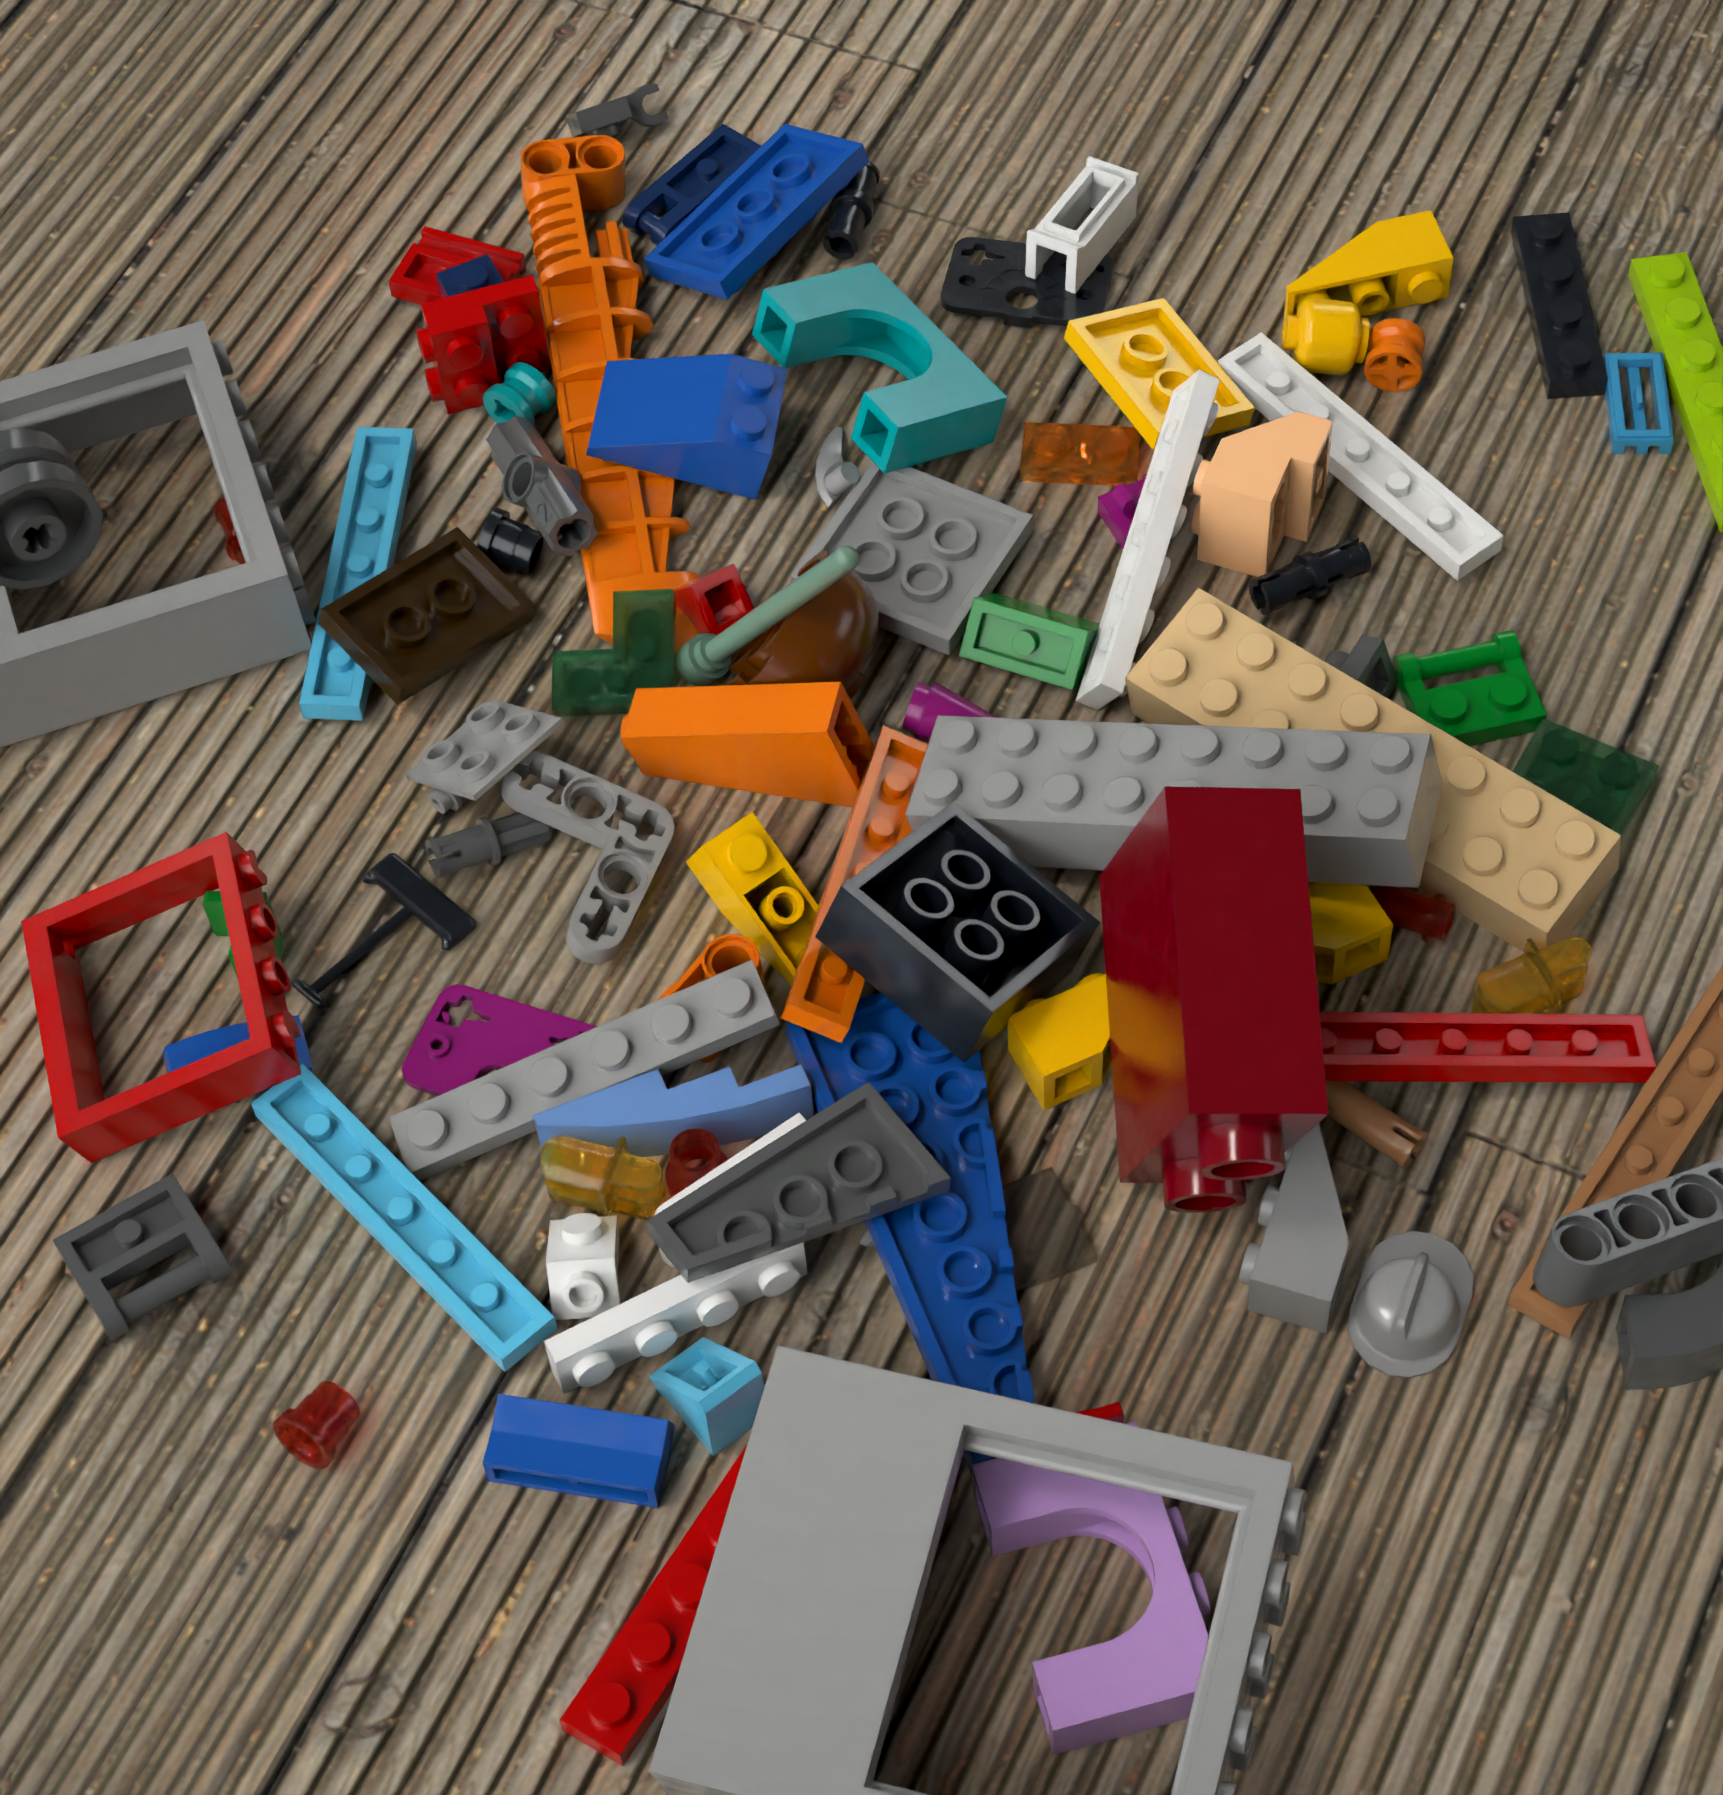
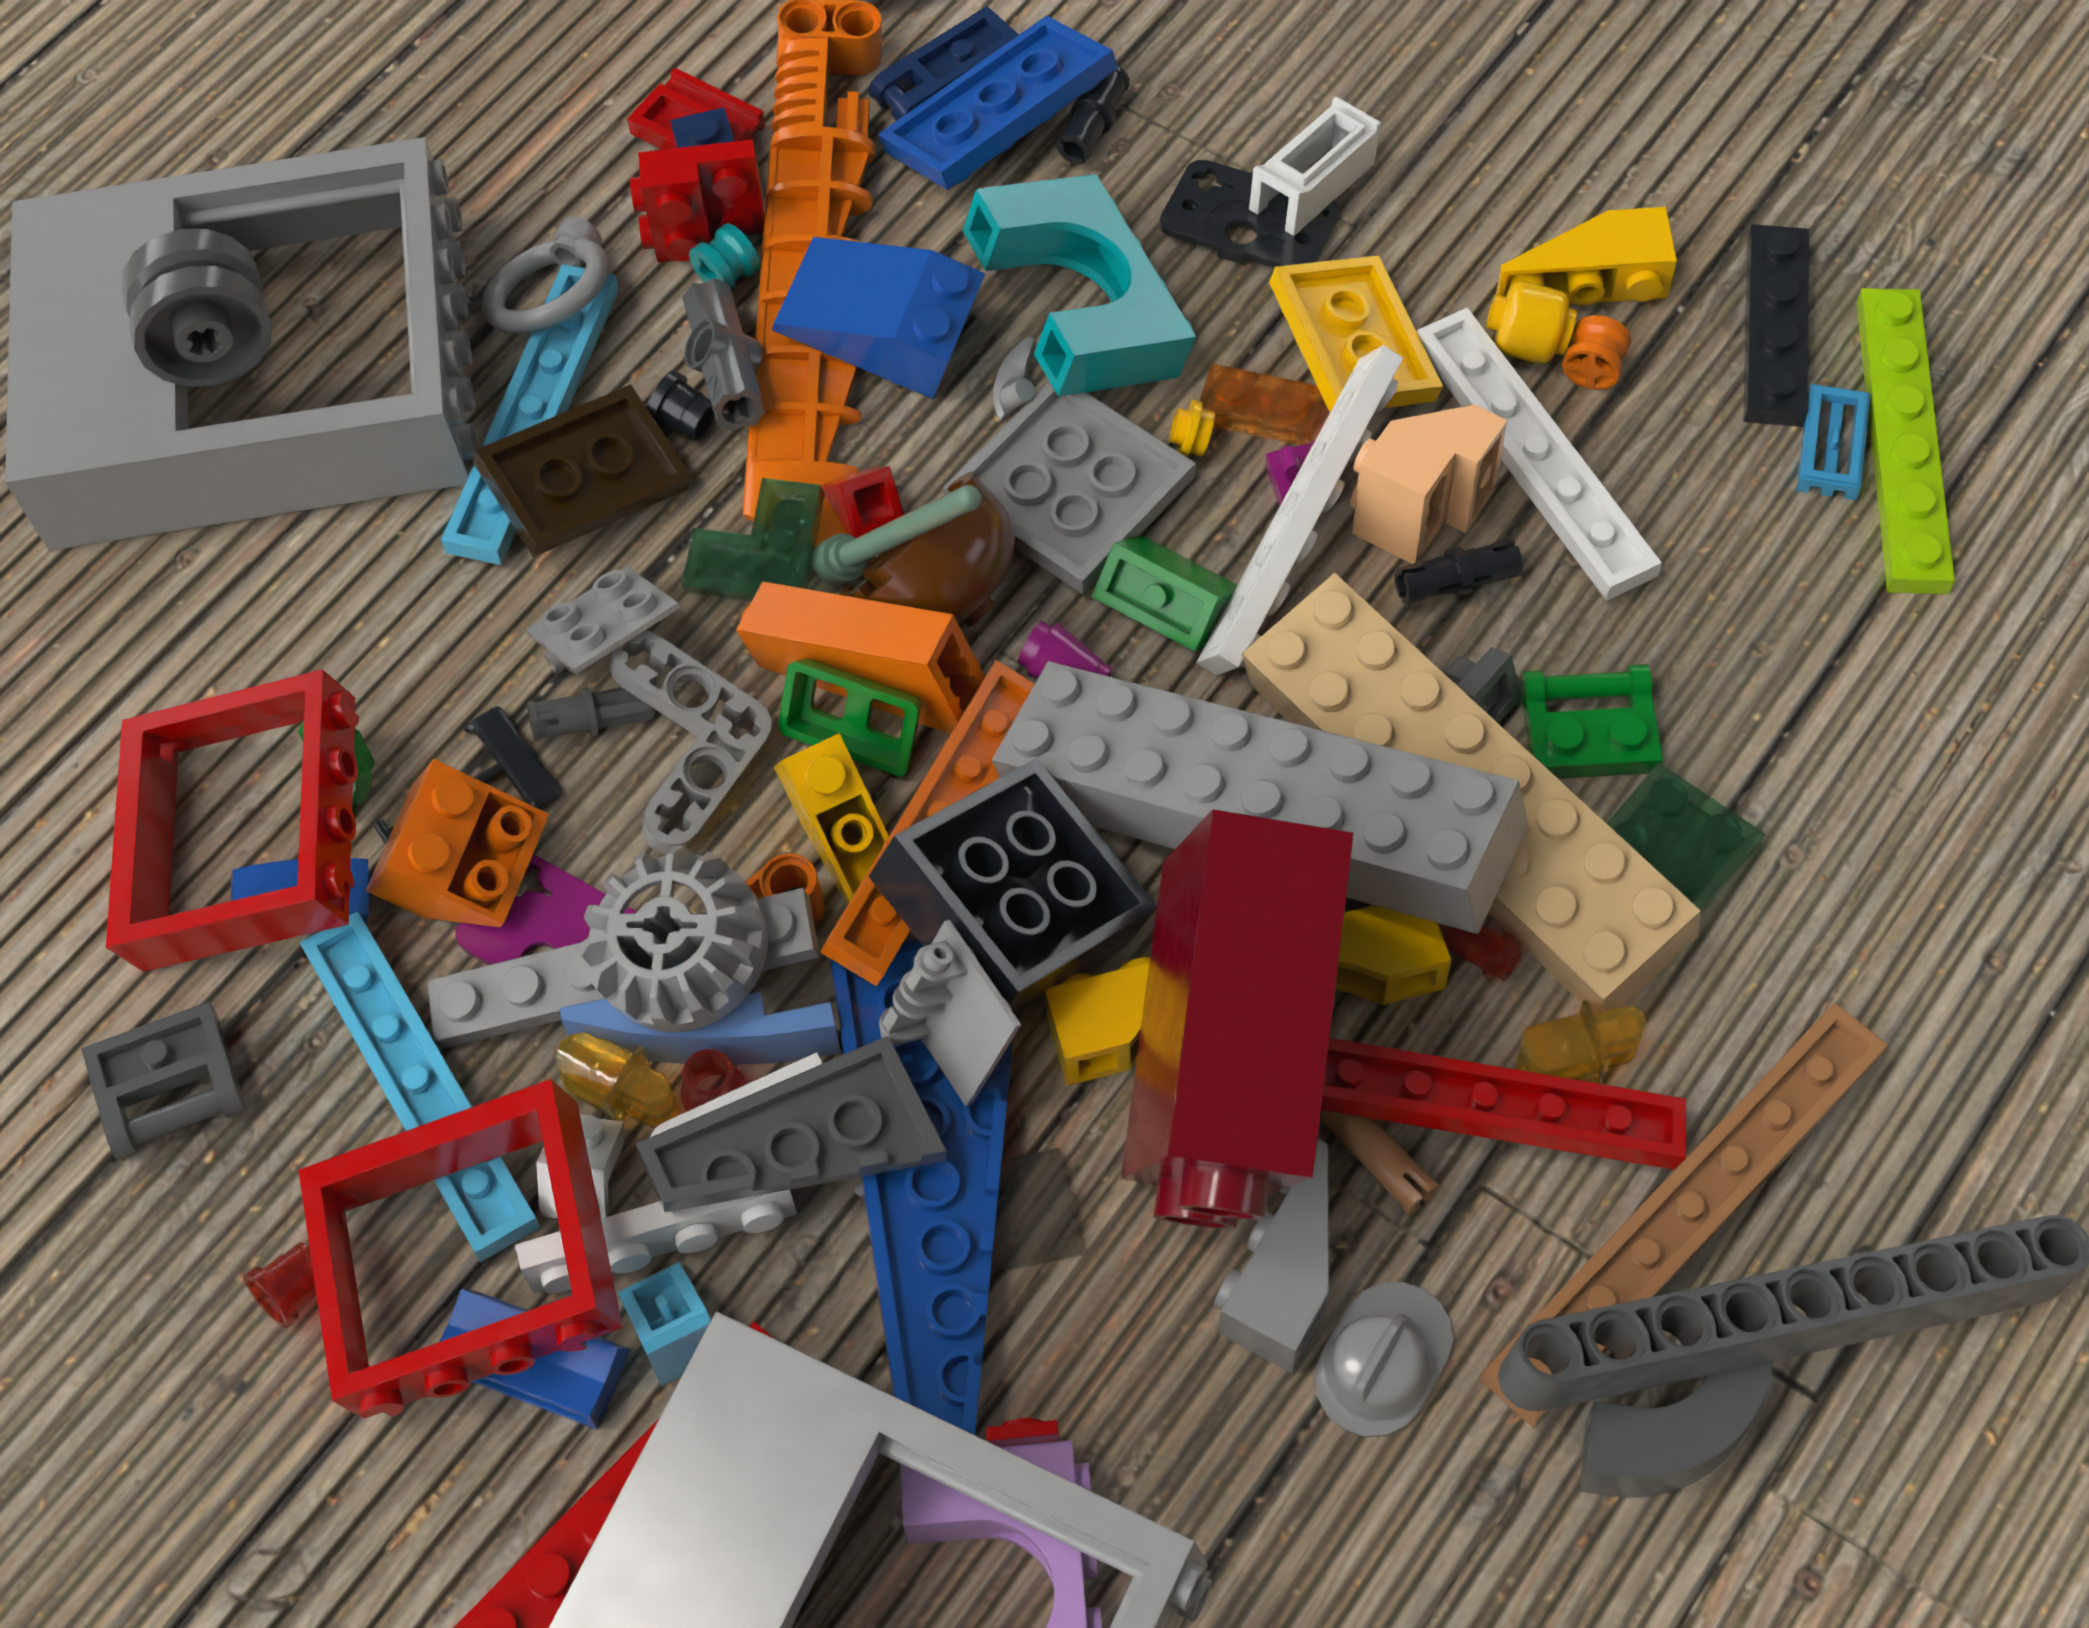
camera: 10 degrees right, 5 degrees up
(361, 406) = (573, 244): none -> light grey piece
(388, 989) = (457, 849): none -> orange slope
(441, 1270) = (420, 1156): none -> red window
(665, 1057) = (699, 969): none -> light grey gear
(708, 819) = (807, 724): none -> green piece
(930, 1048) = (953, 1011): none -> light grey hinge
(1021, 484) = (1192, 429): none -> yellow plate

